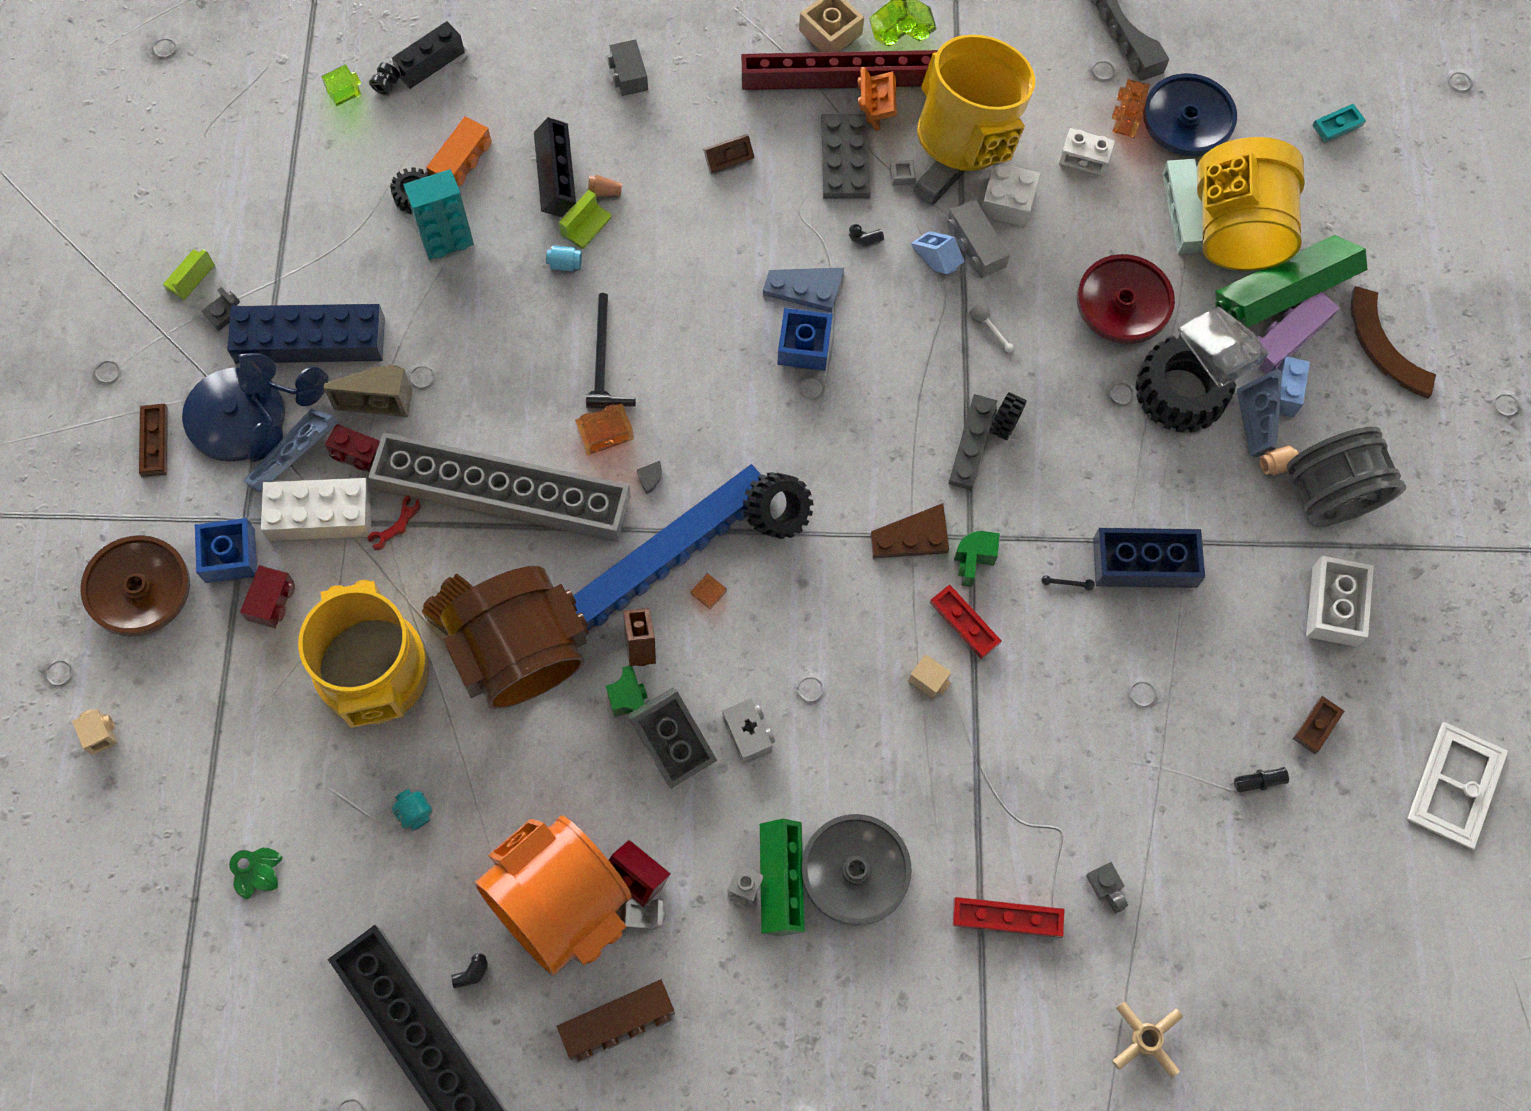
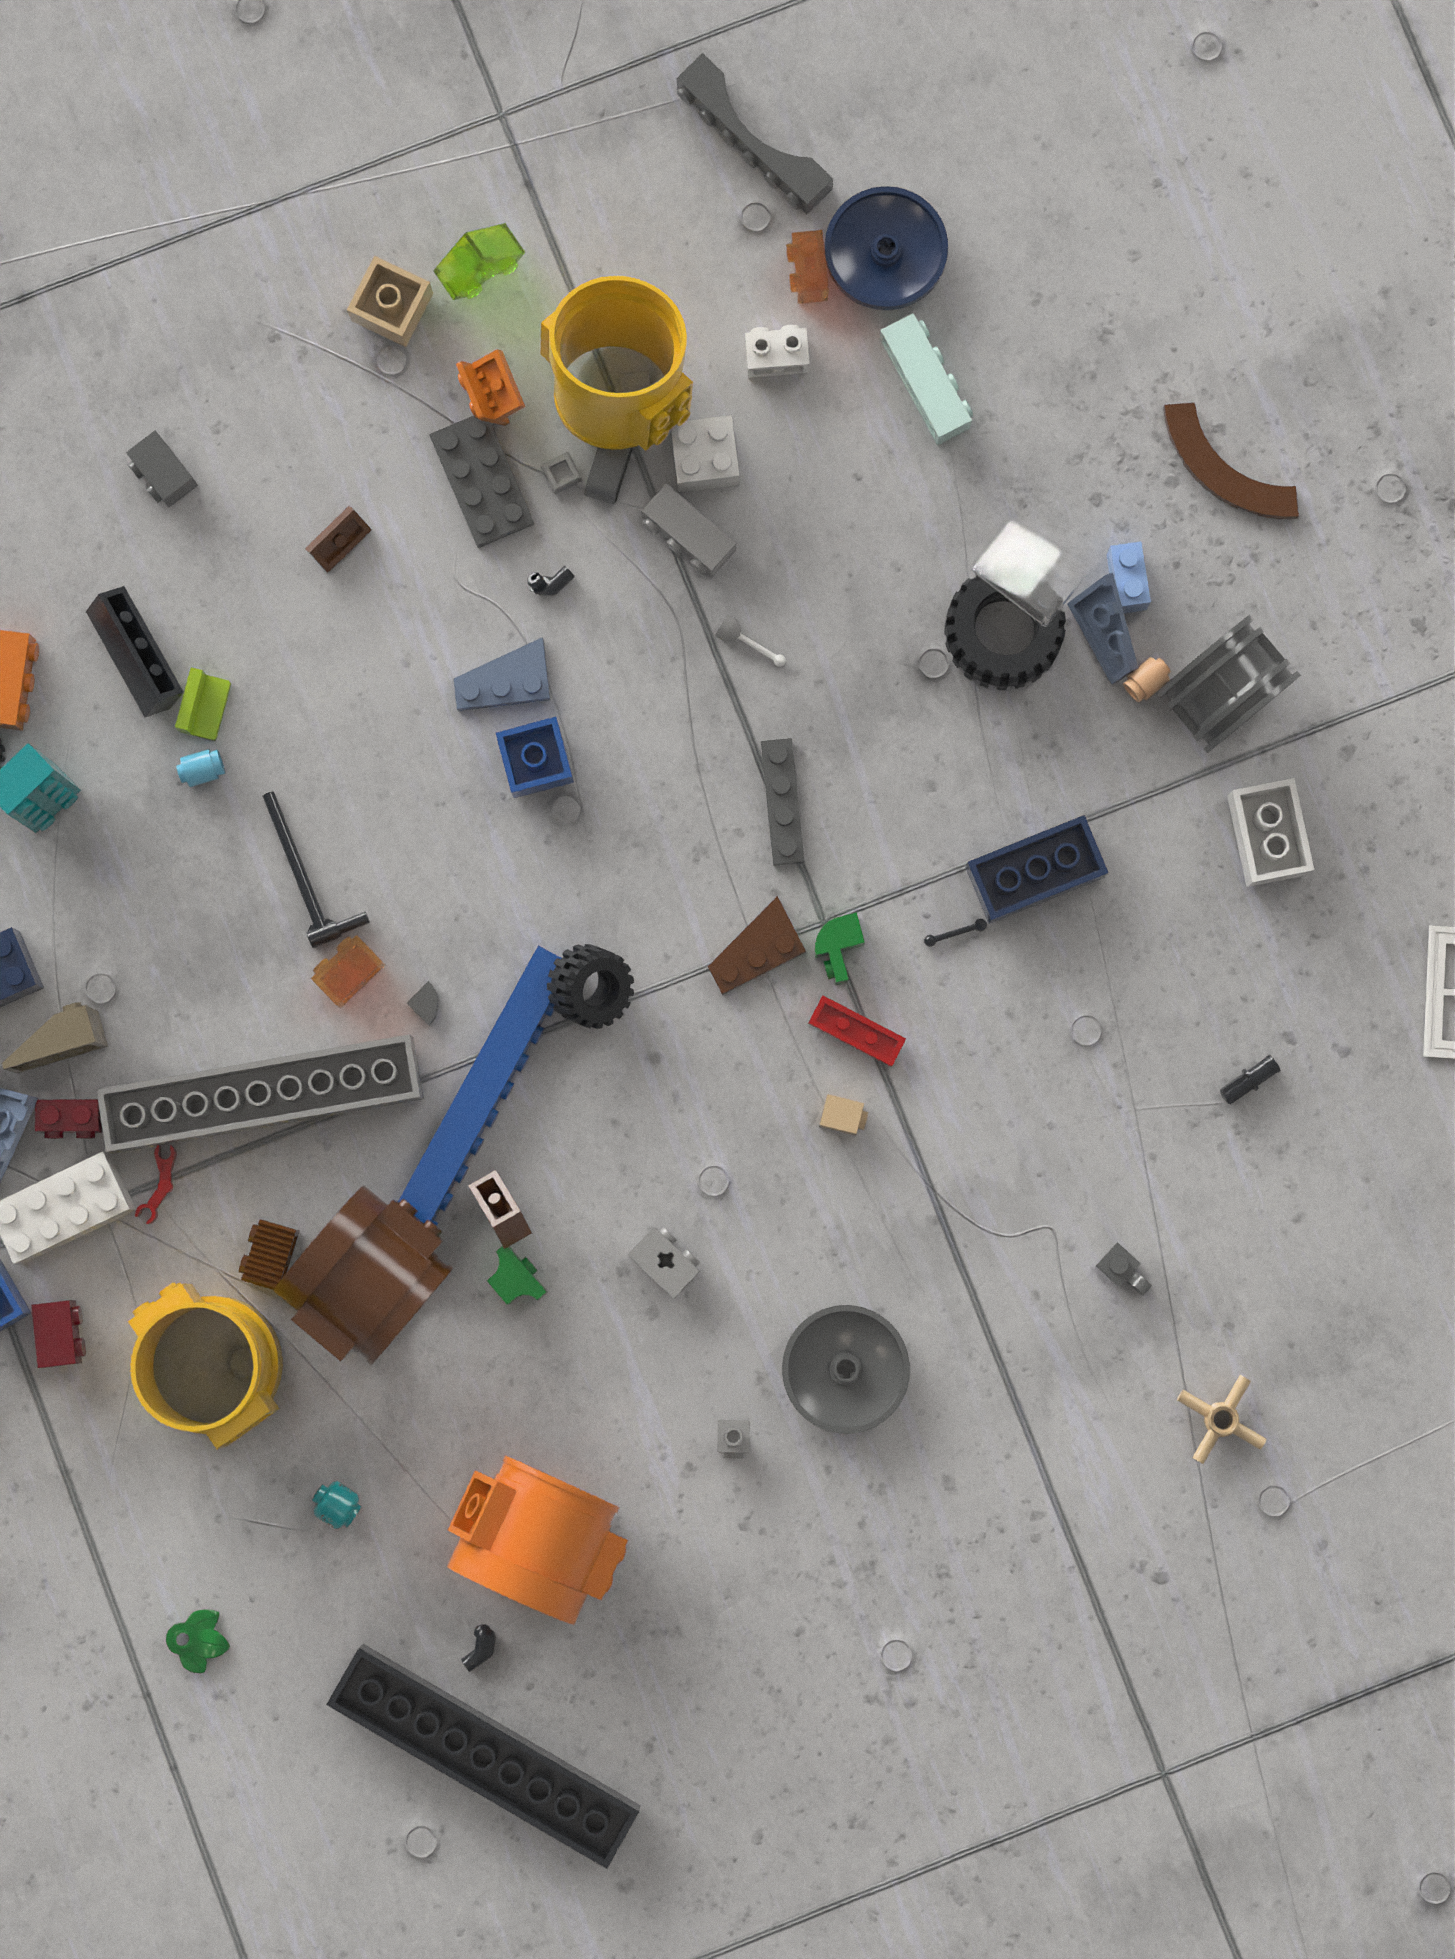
camera: 15 degrees left, 15 degrees up
(604, 187) = (204, 649): nougat cone -> none
(616, 1020) = (656, 1633): reddish brown brick -> none
(639, 871) = (610, 1472): dark red brick -> none
(643, 918) = (637, 1512): light grey bracket -> none
(672, 737) = (586, 1310): dark grey brick -> none
(708, 591) = (552, 1115): clear orange tile -> none
(782, 873) = (769, 1411): green brick -> none
(831, 69) = (431, 362): dark red brick -> none
(939, 252) = (647, 569): light blue slope -> none
(1007, 416) = (811, 758): black tyre -> none
(1008, 917) = (1028, 1350): red plate -> none
(1125, 298) = (895, 542): dark red dish -> none
(1251, 203) = (1002, 369): yellow cylinder -> none
(1293, 281) = (1084, 437): green brick -> none
(1296, 329) = (1109, 500): lavender brick -> none
(1318, 725) = (1292, 989): reddish brown plate -> none
(1339, 123) = (1074, 177): teal plate -> none

